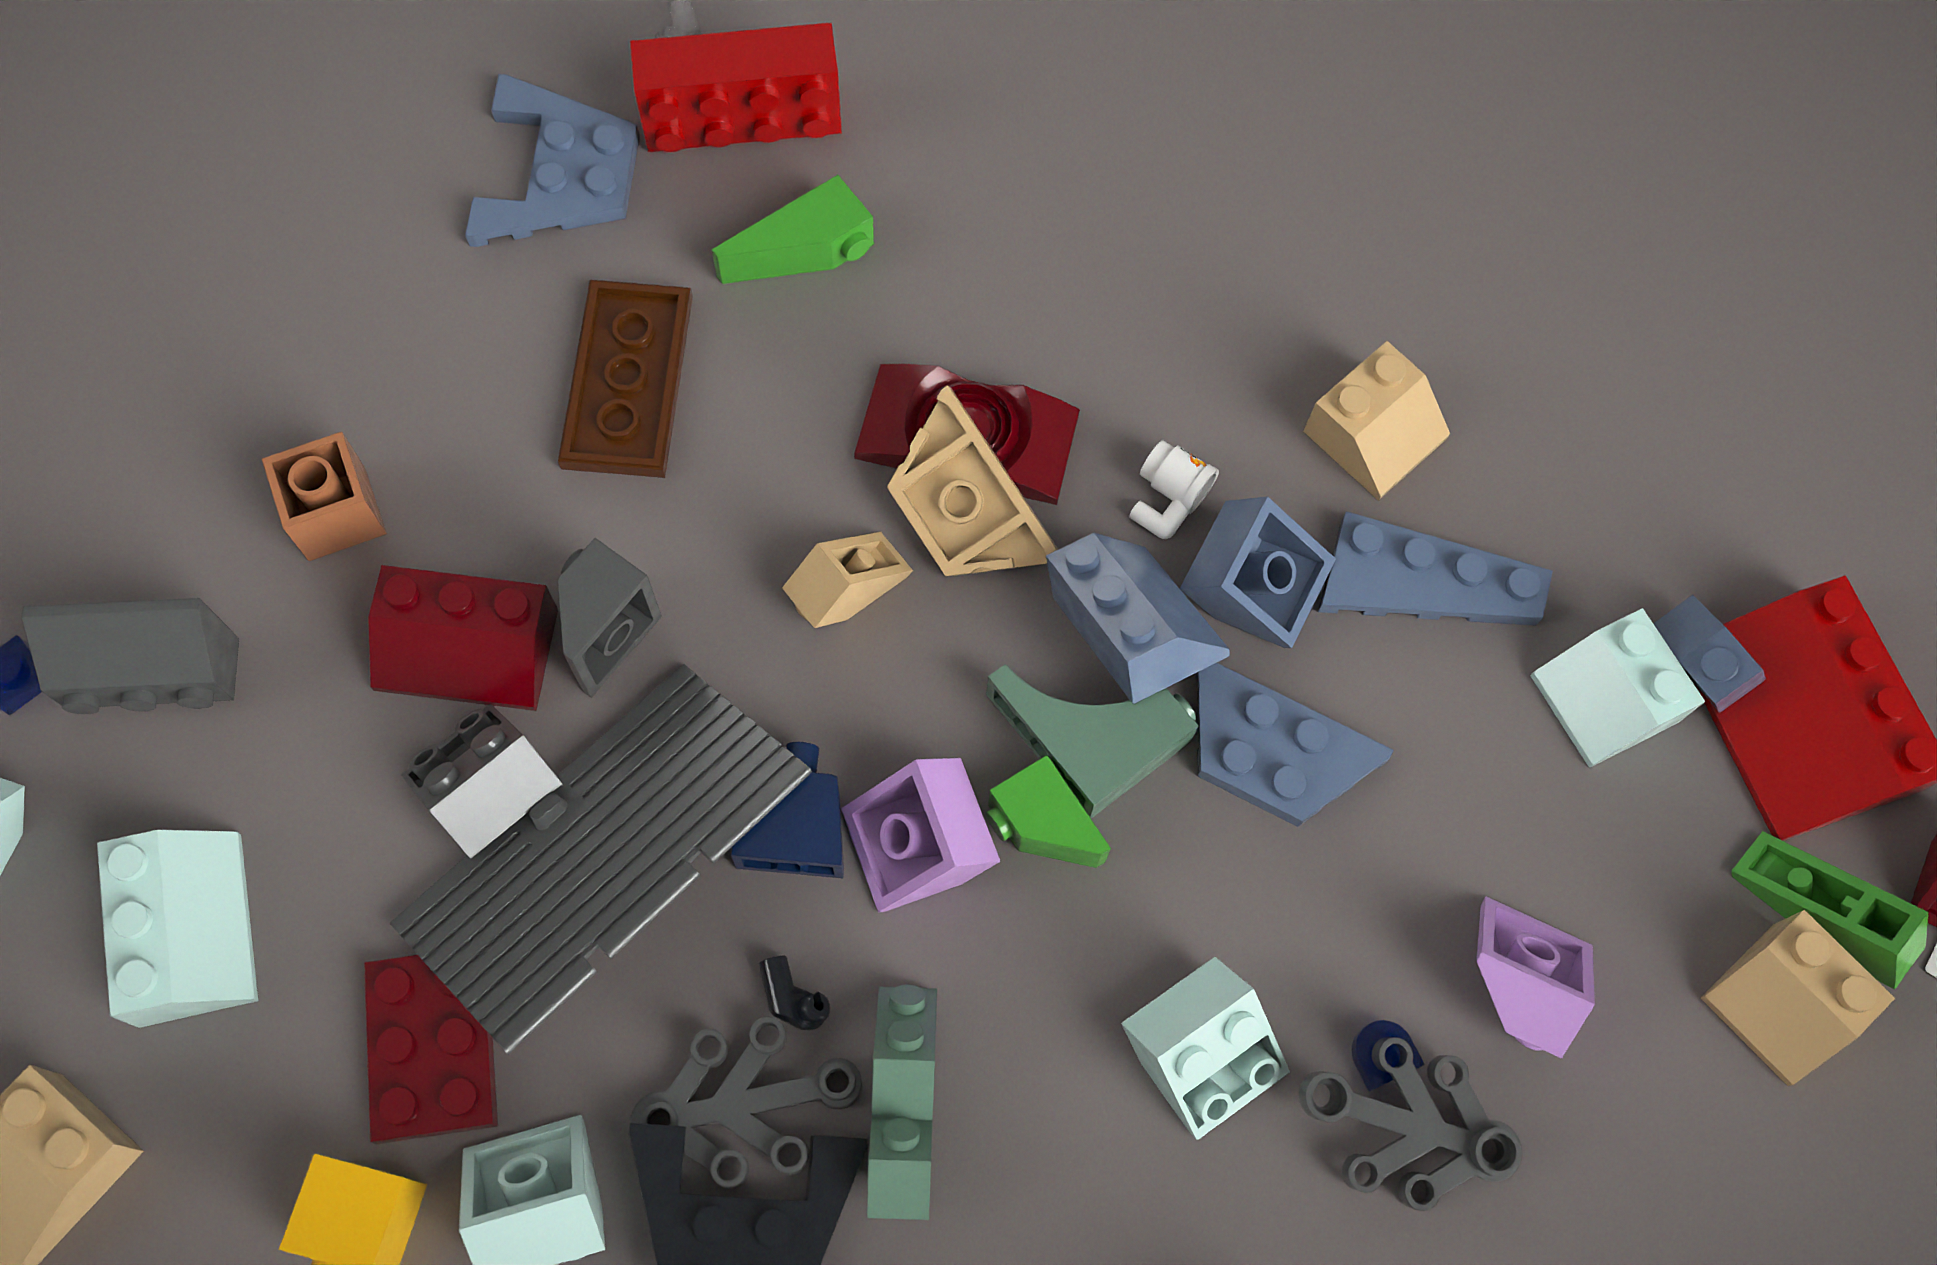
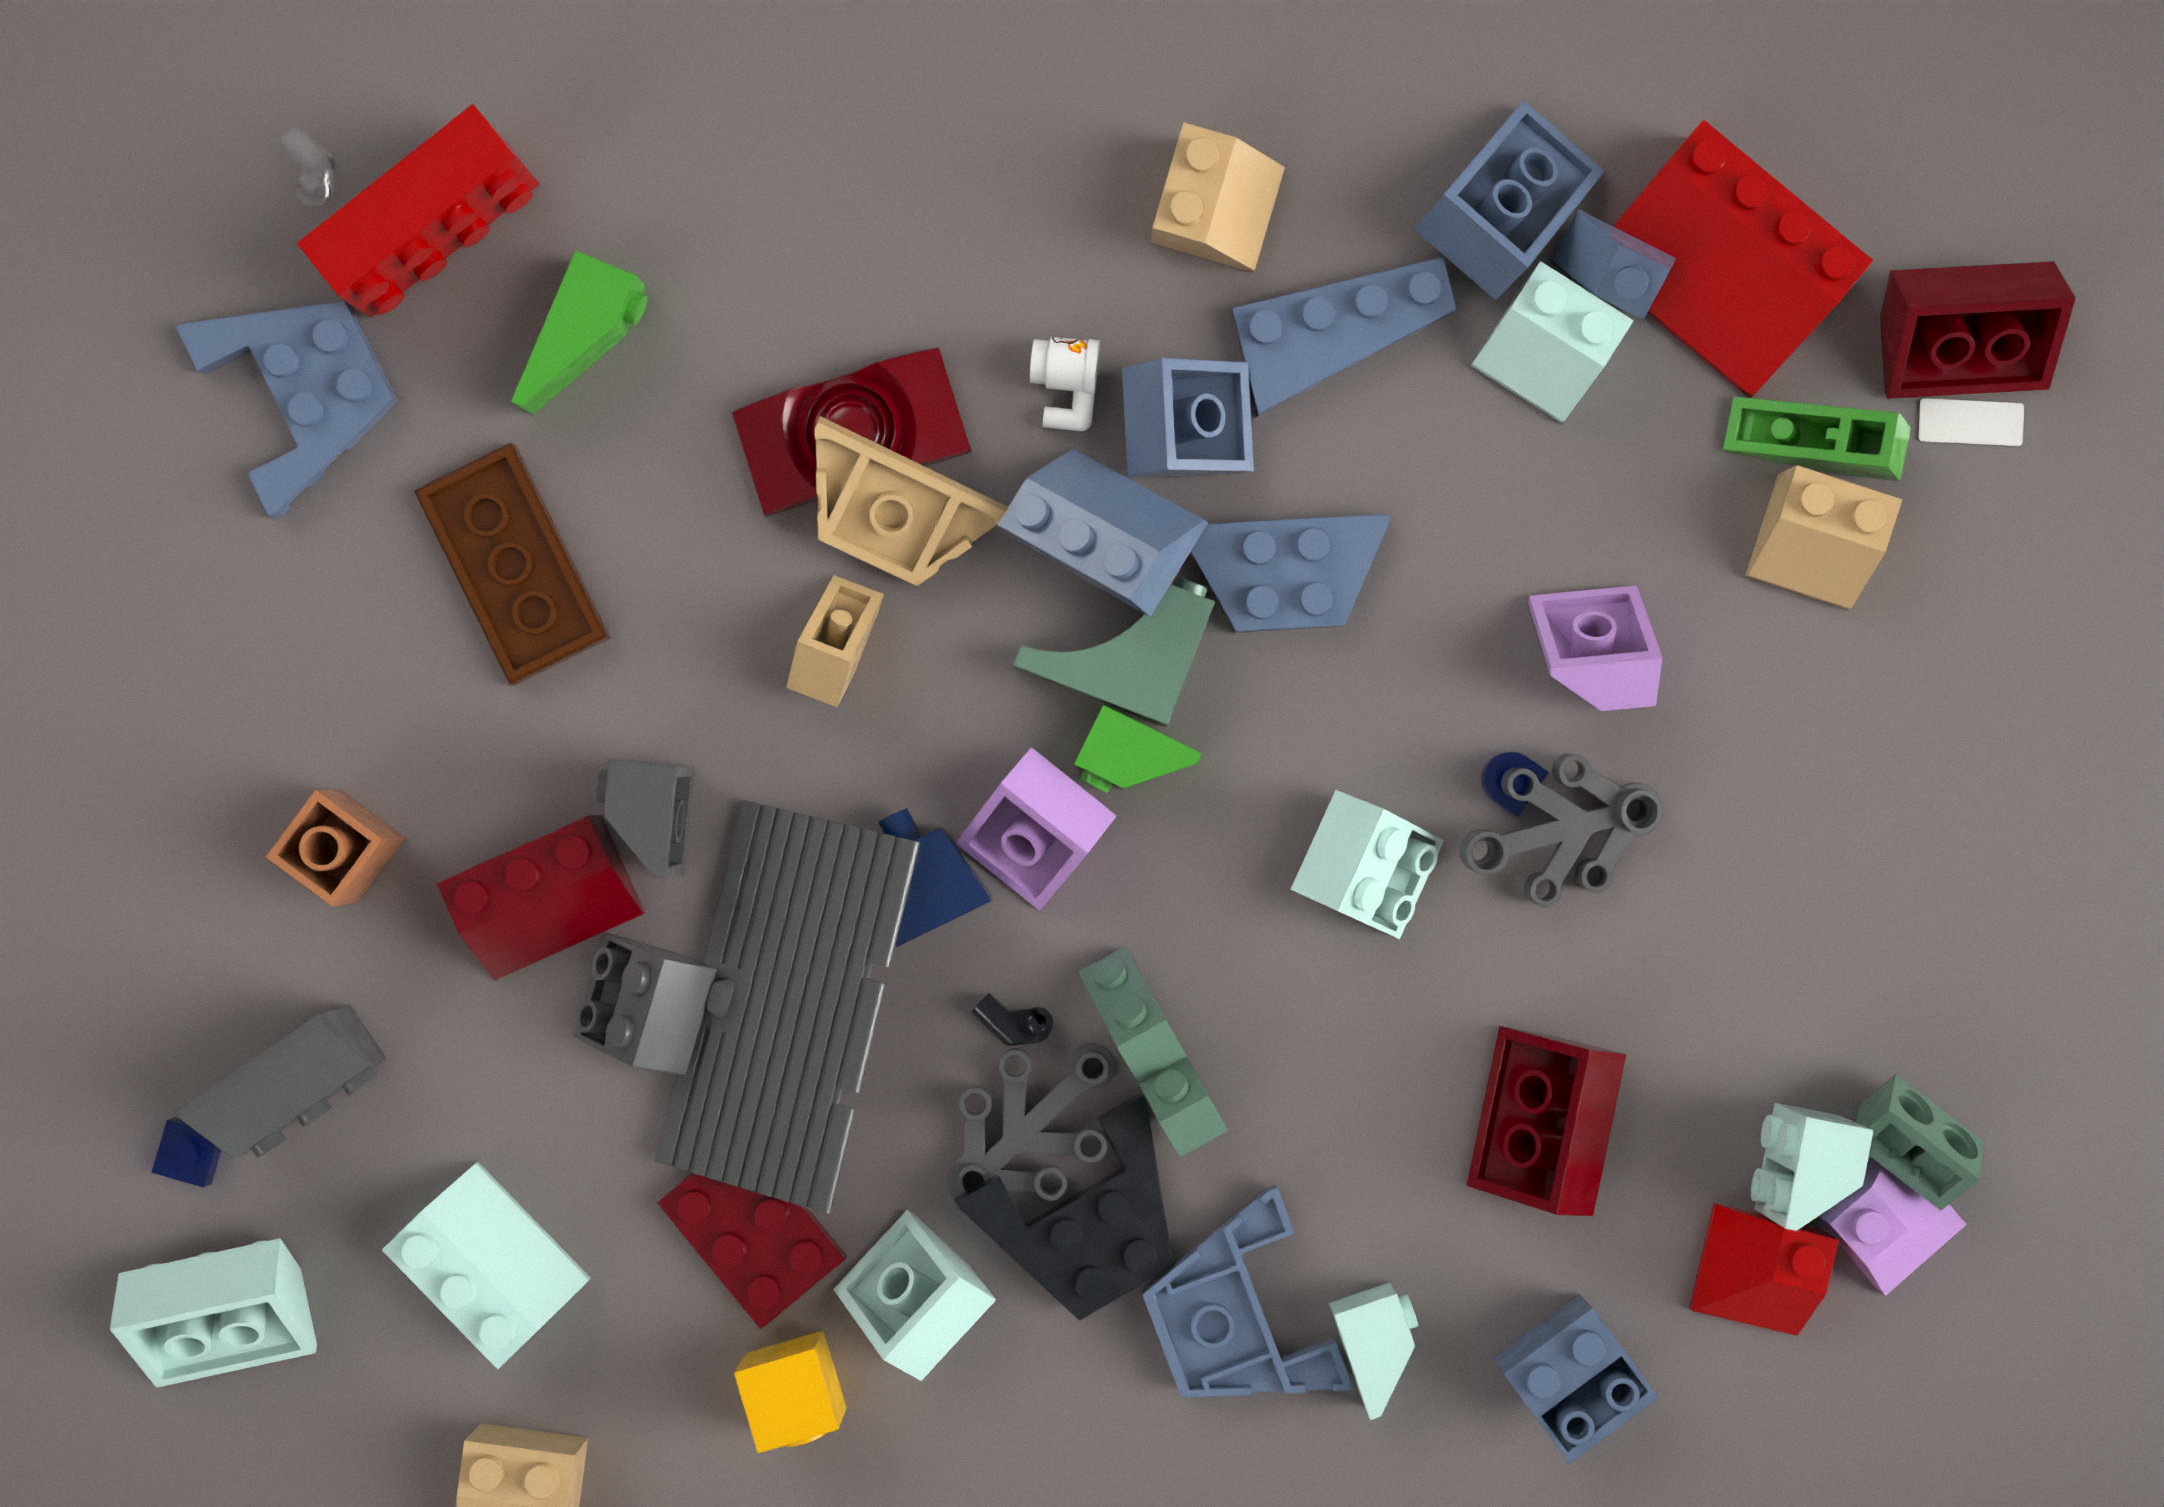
camera: 25 degrees left, 20 degrees up
(1631, 556) = (1509, 200): none -> sand blue slope

